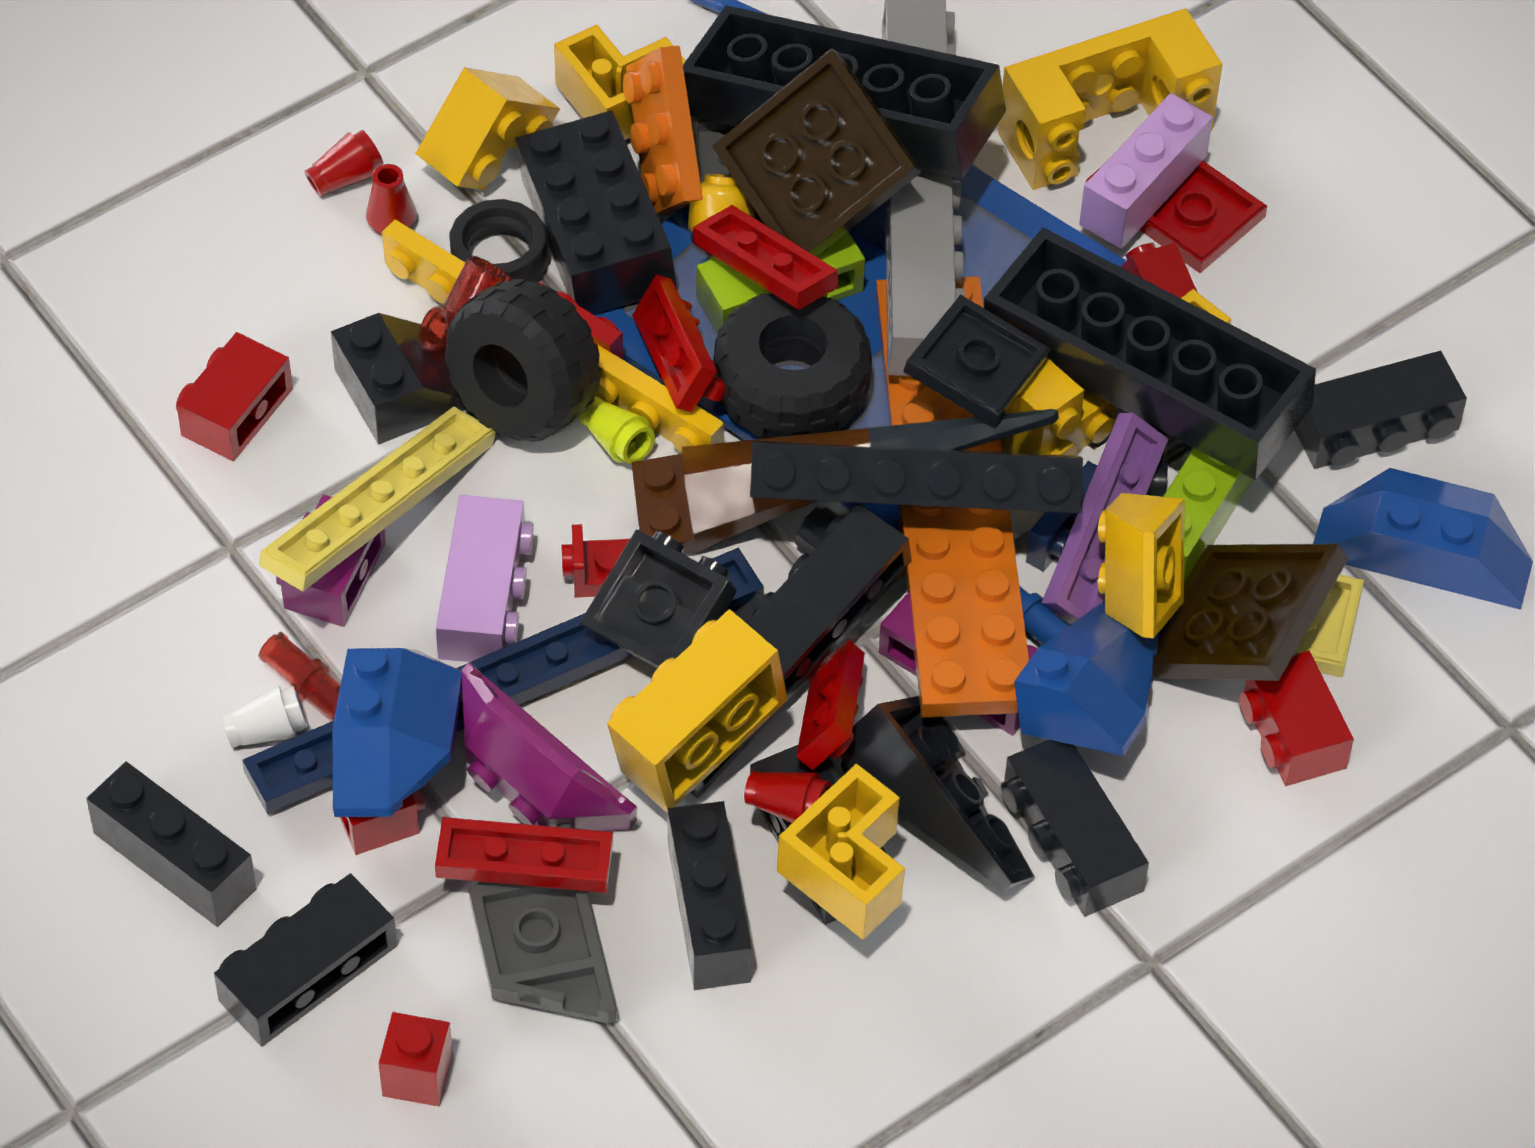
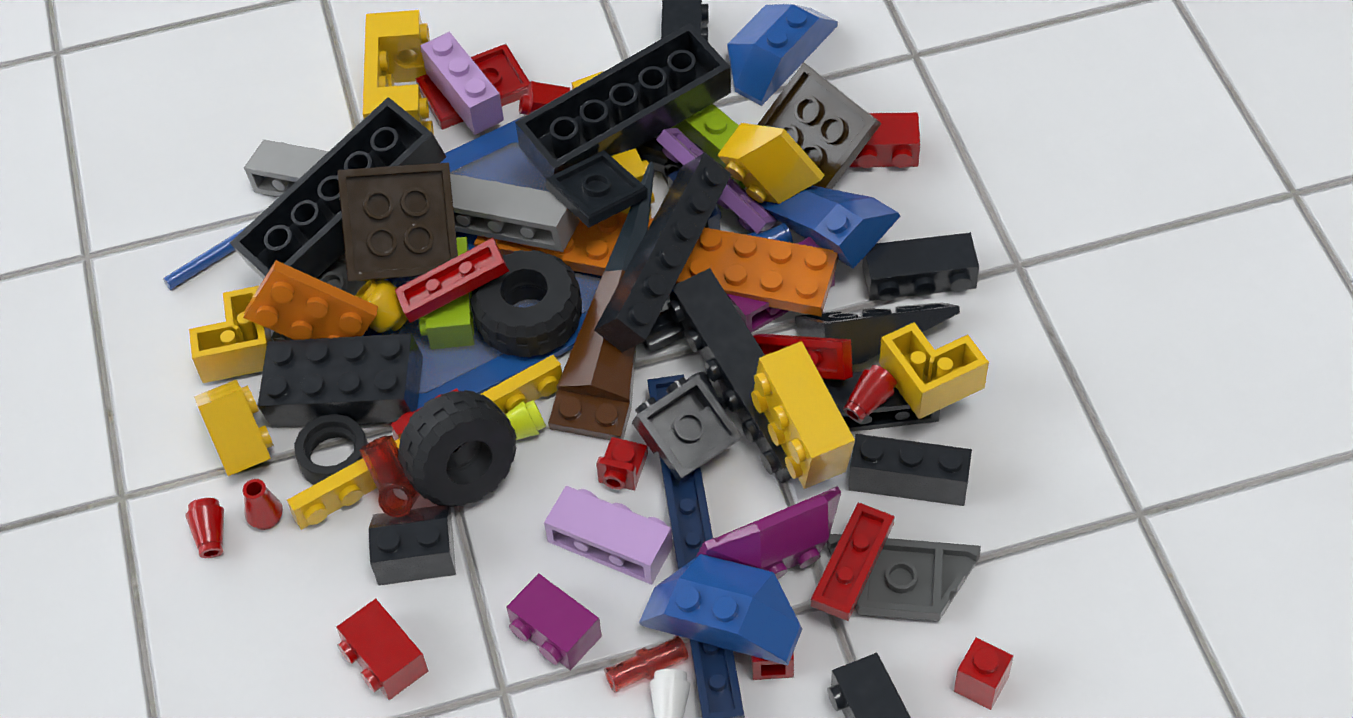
camera: 65 degrees left, 0 degrees up
(376, 499) = (530, 573): light yellow tile -> none
(677, 345) = (481, 360): red plate -> none

